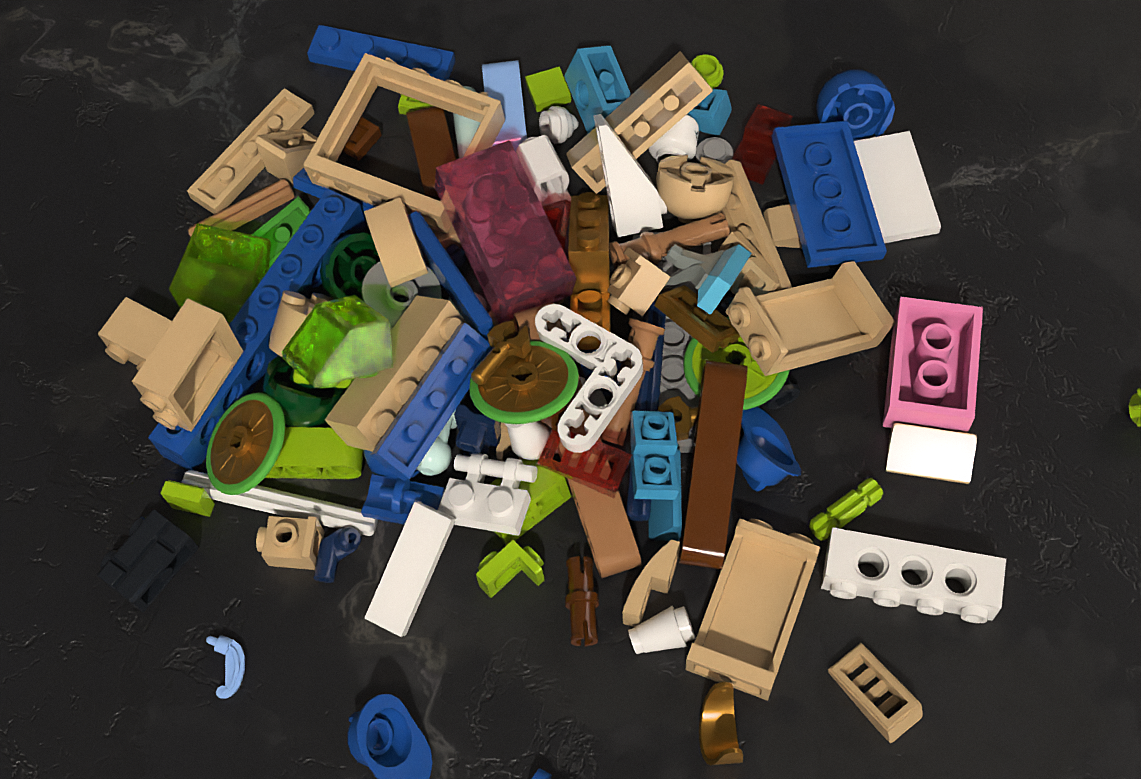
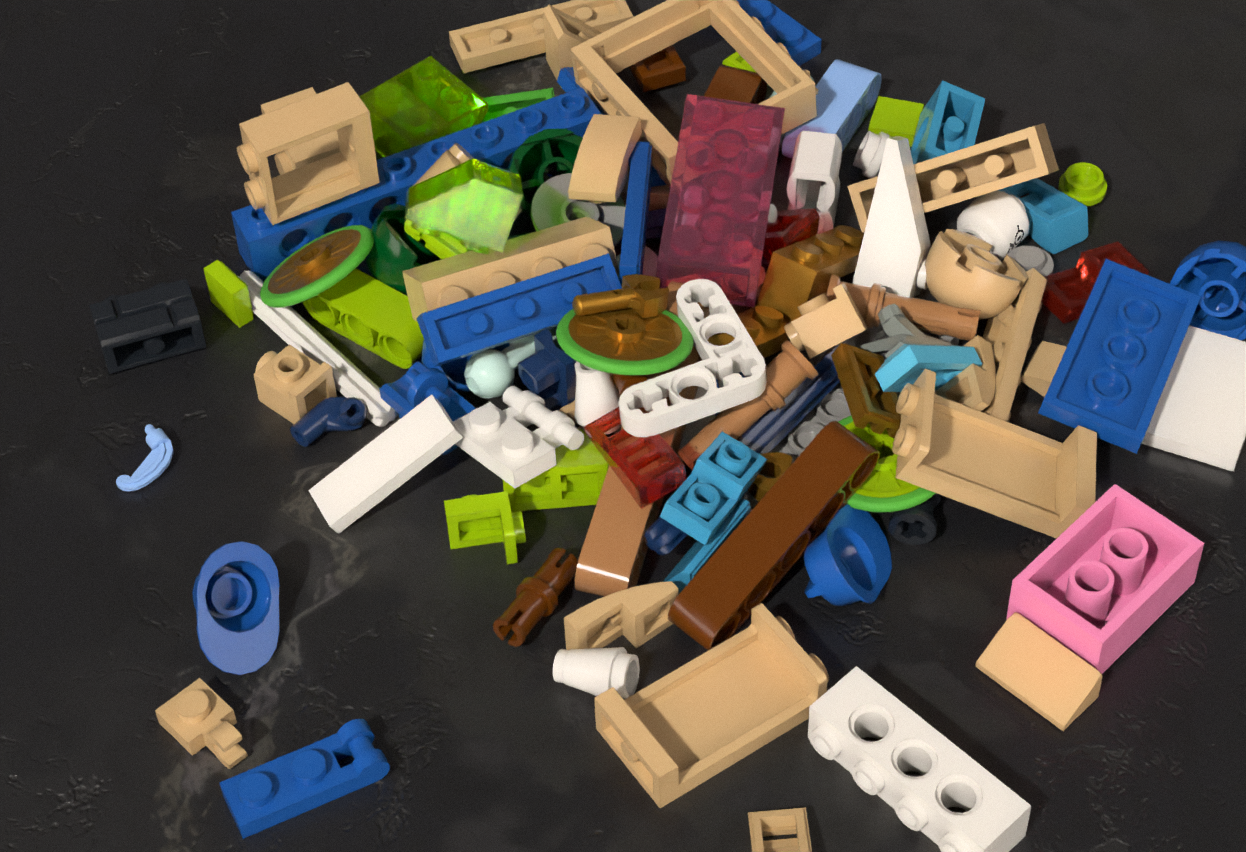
camera: 30 degrees right, 15 degrees down
(250, 207) = (504, 79): medium nougat axle -> none
(718, 727) = (589, 792): pearl gold helmet -> none
(846, 508) = (904, 671): lime axle -> none

